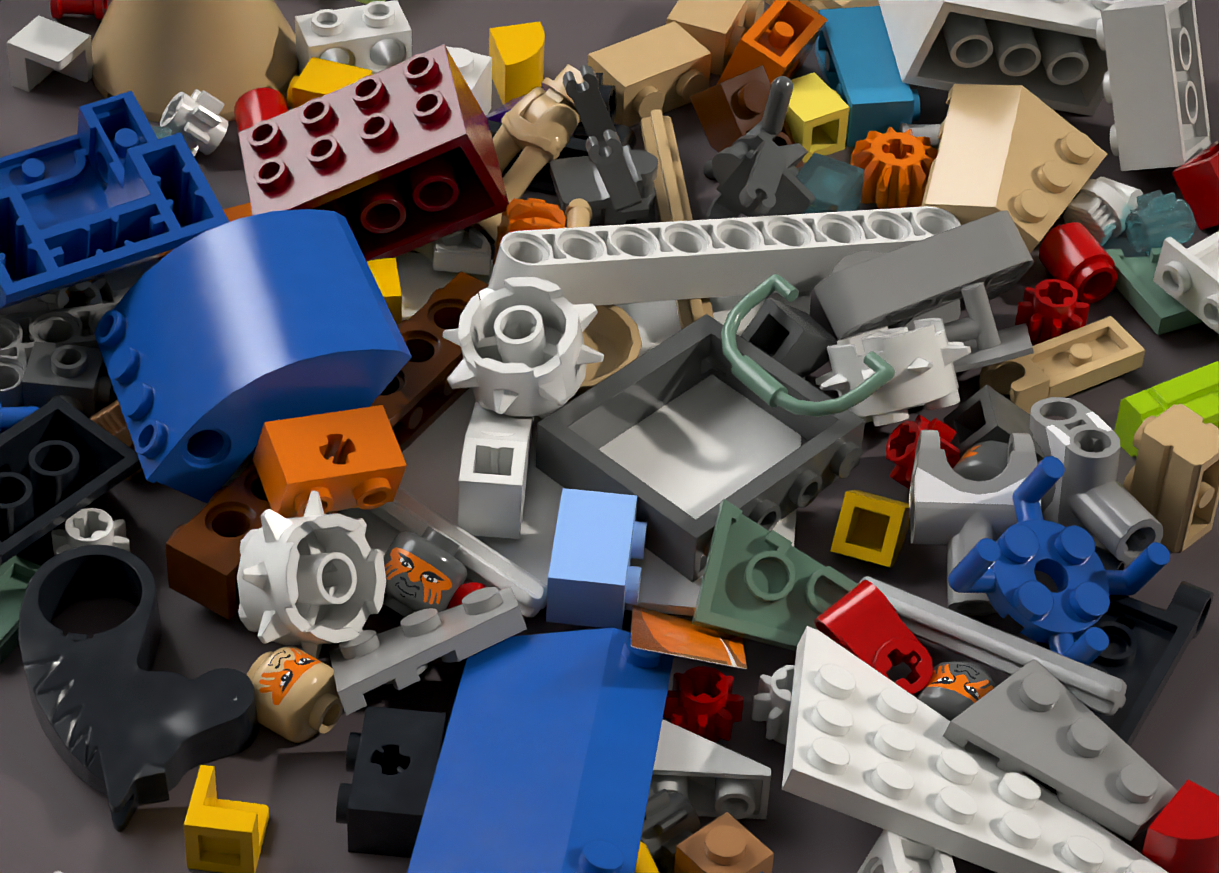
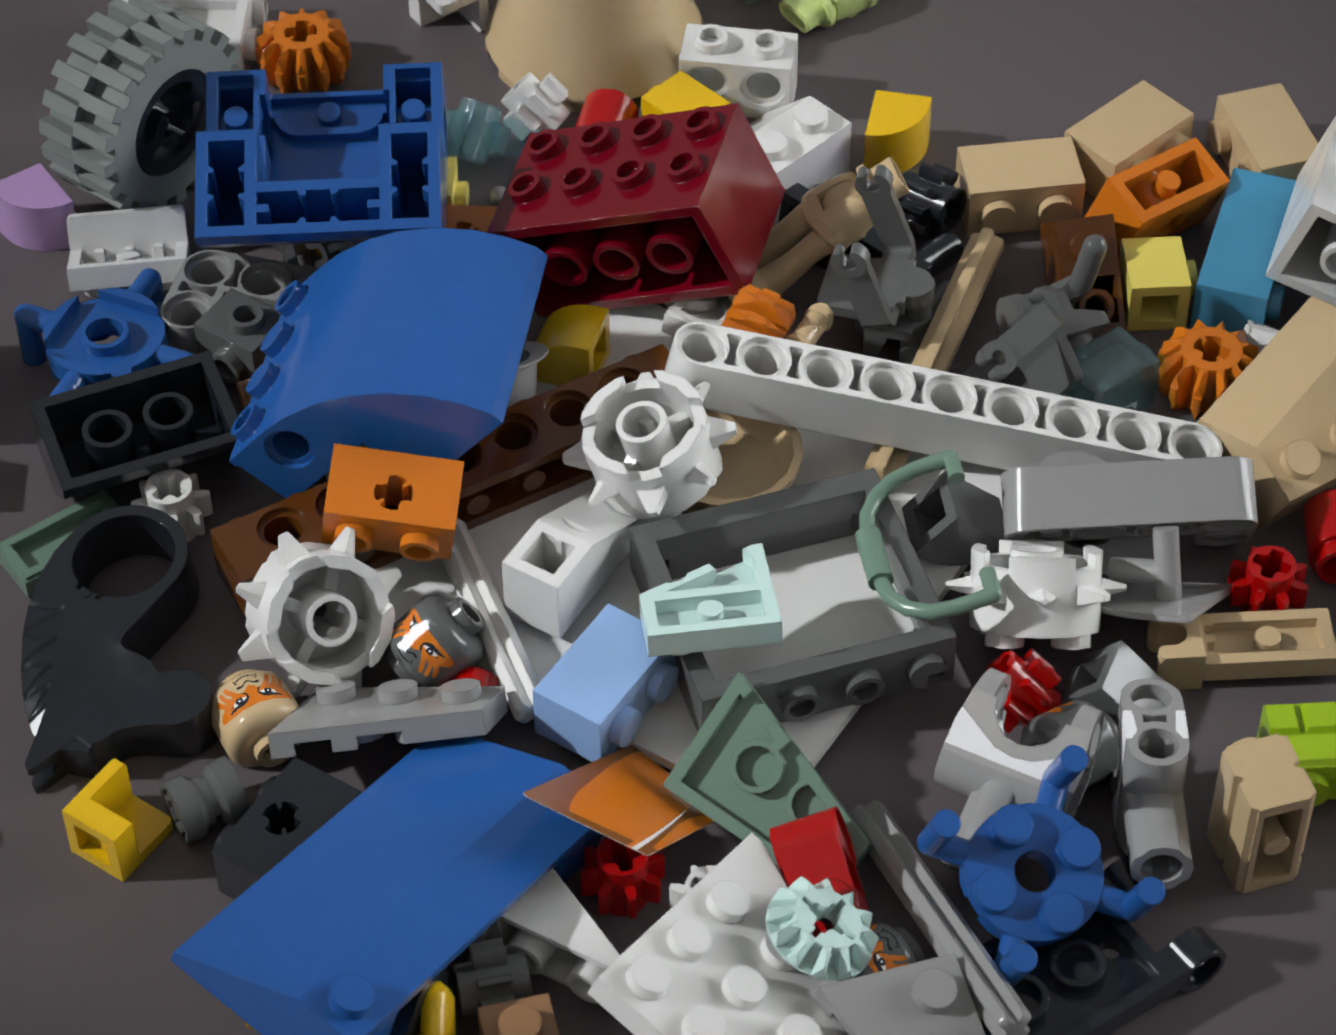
camera: 30 degrees right, 5 degrees up
(301, 769) = (198, 802): none -> dark grey wheel
(666, 458) = (713, 609): none -> light aqua wing
(871, 528) = (909, 748): yellow brick -> none
(902, 669) = (829, 956): none -> light aqua gear

